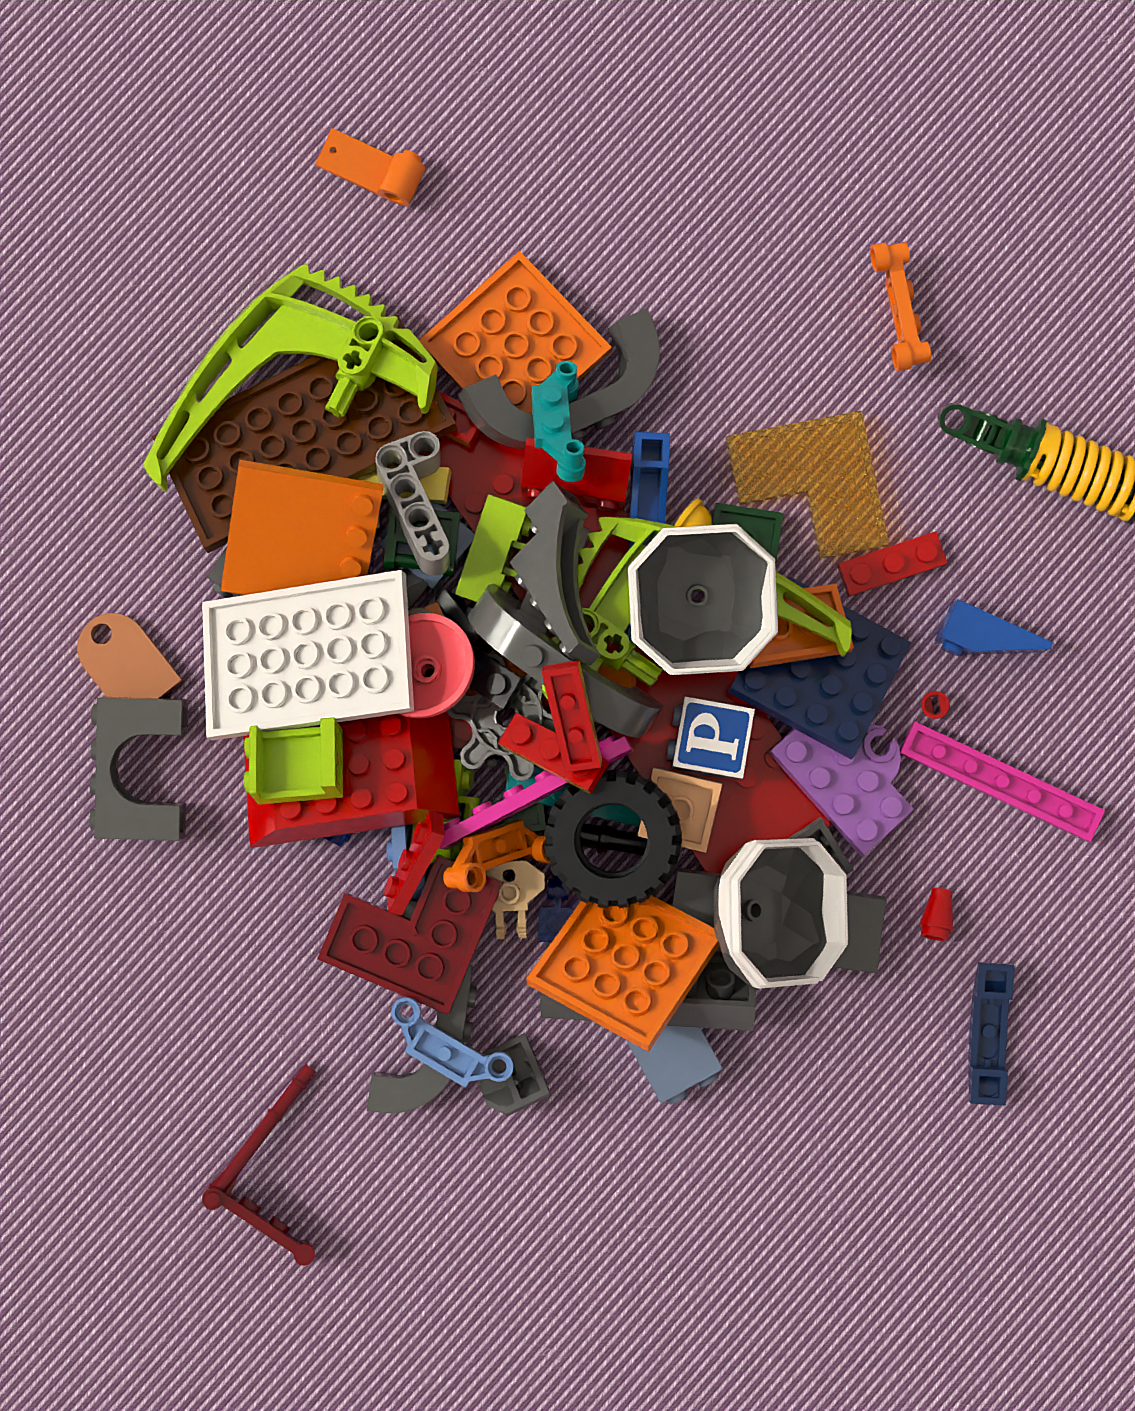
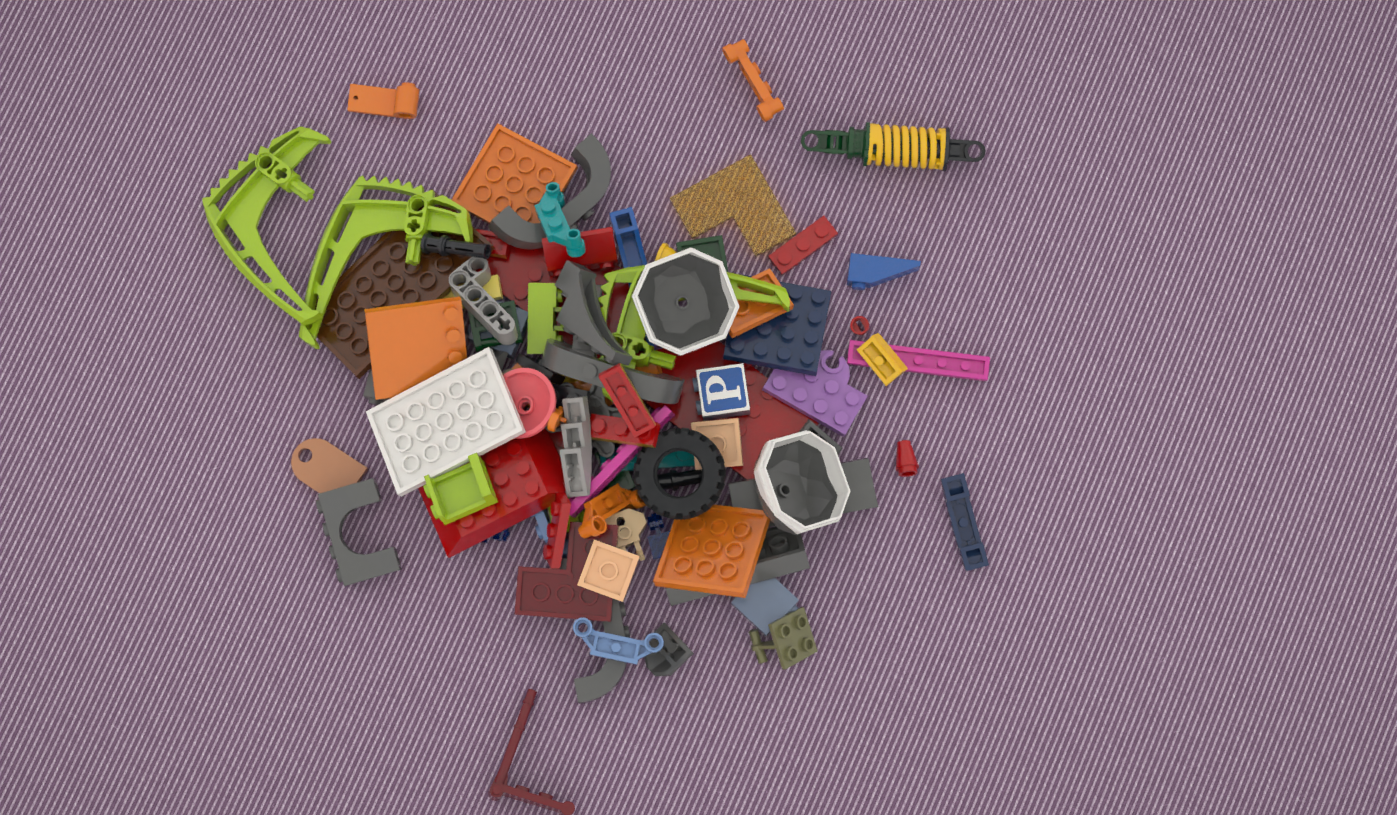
camera: 15 degrees left, 5 degrees down
(134, 253) = (248, 204): none -> lime piece
(388, 404) = (445, 246): none -> black pin
(464, 704) = (556, 419): none -> orange piece
(468, 944) = (608, 570): none -> light nougat plate
(481, 754) = (577, 450): none -> light grey slope
(693, 1117) = (790, 637): none -> olive plate
(951, 764) = (882, 359): none -> yellow slope

